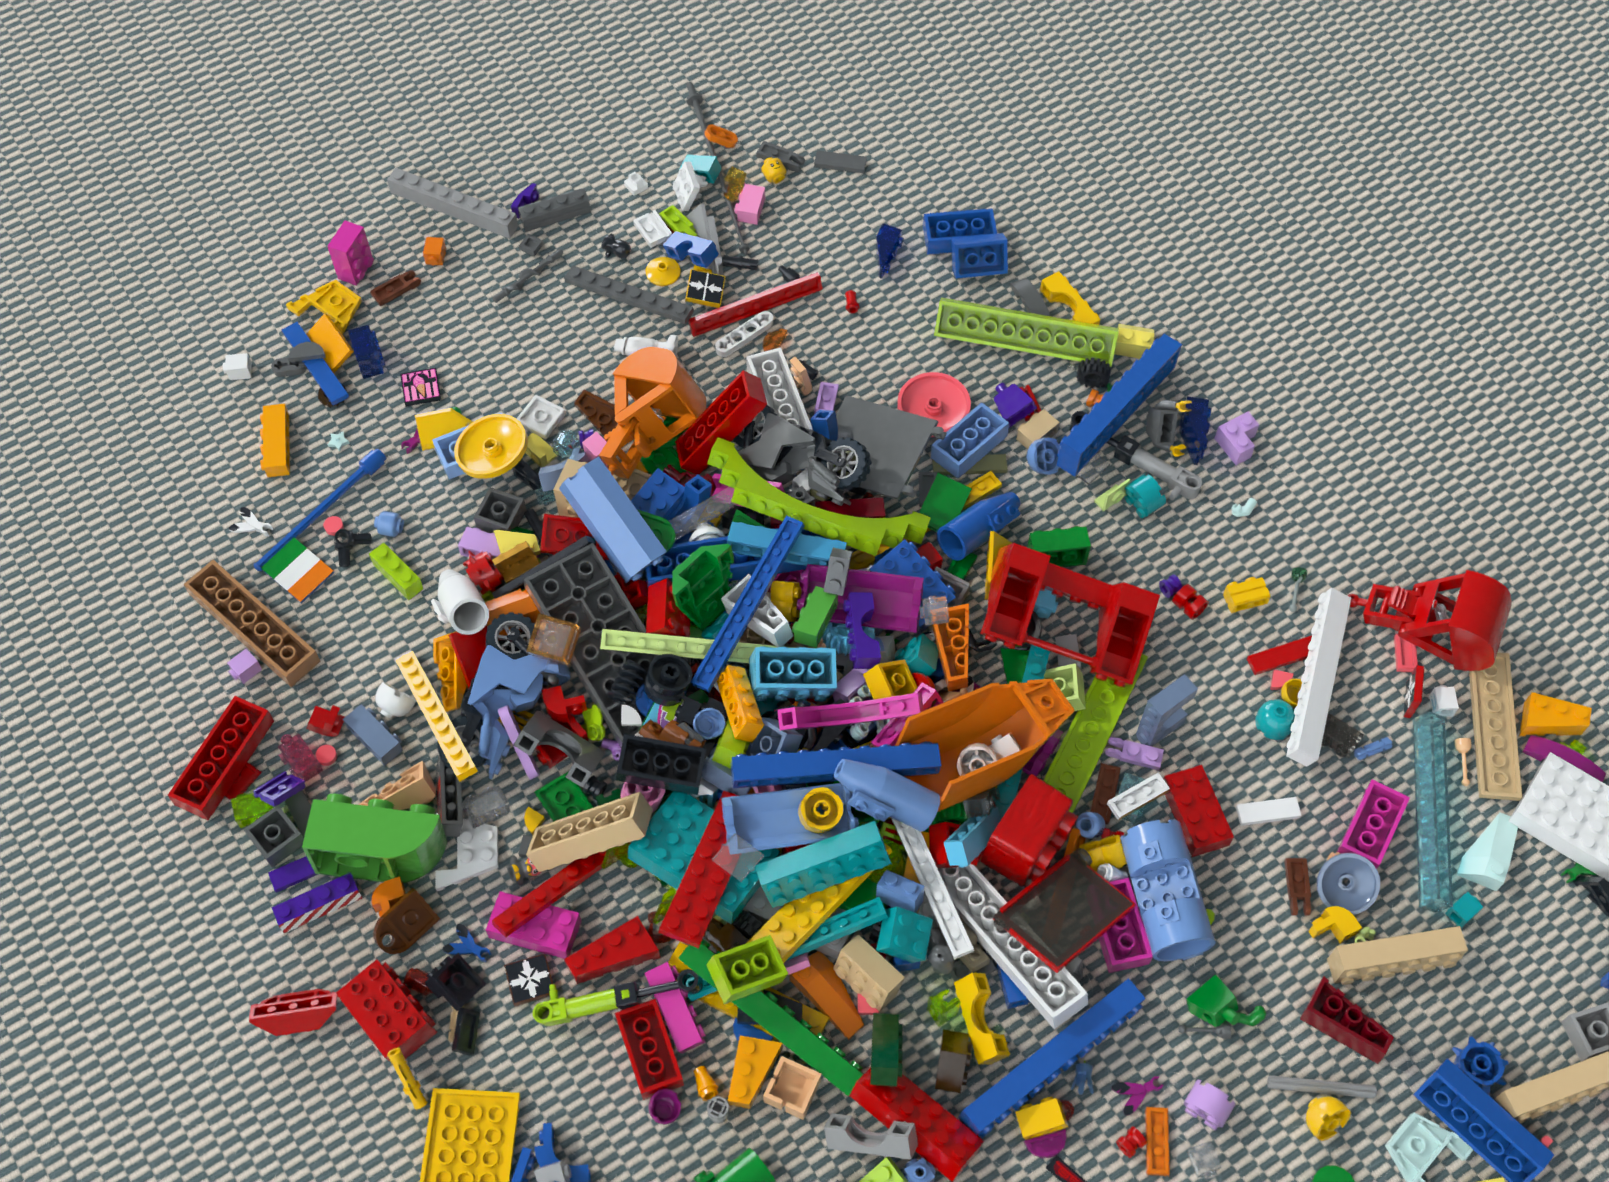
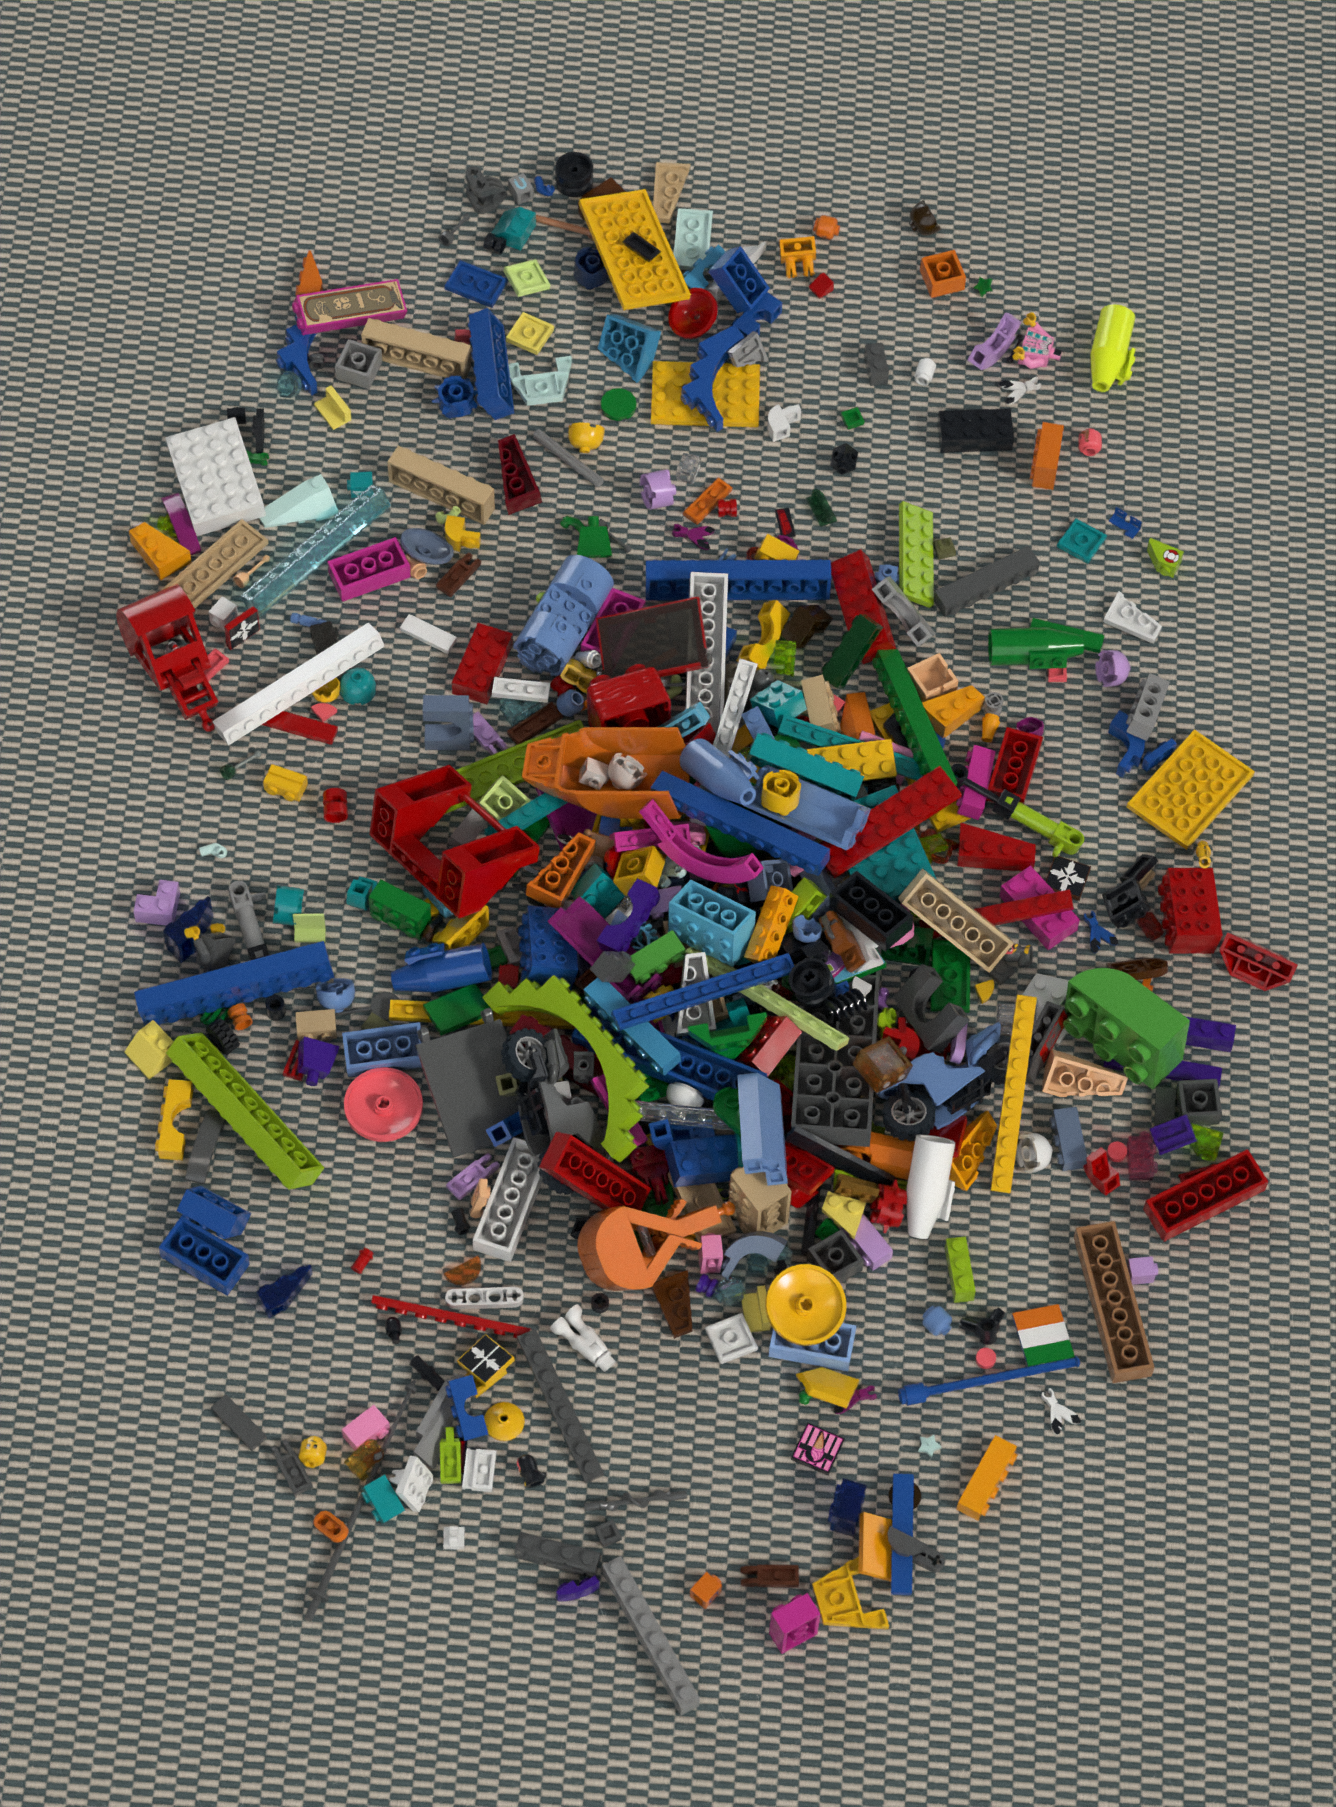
camera: 145 degrees left, 0 degrees up
(238, 366) = (976, 1585): white brick -> none
(737, 857) = (866, 803): clear piece -> none
(747, 969) = (915, 736): lime brick -> none
(934, 610) = (561, 891): clear brick -> none
(1008, 480) = (379, 1005): none -> dark grey piece
(1101, 549) = (359, 892): none -> teal brick
(1170, 586) = (336, 829): dark purple wheel -> none
(1567, 974) = (333, 408): none -> light yellow panel

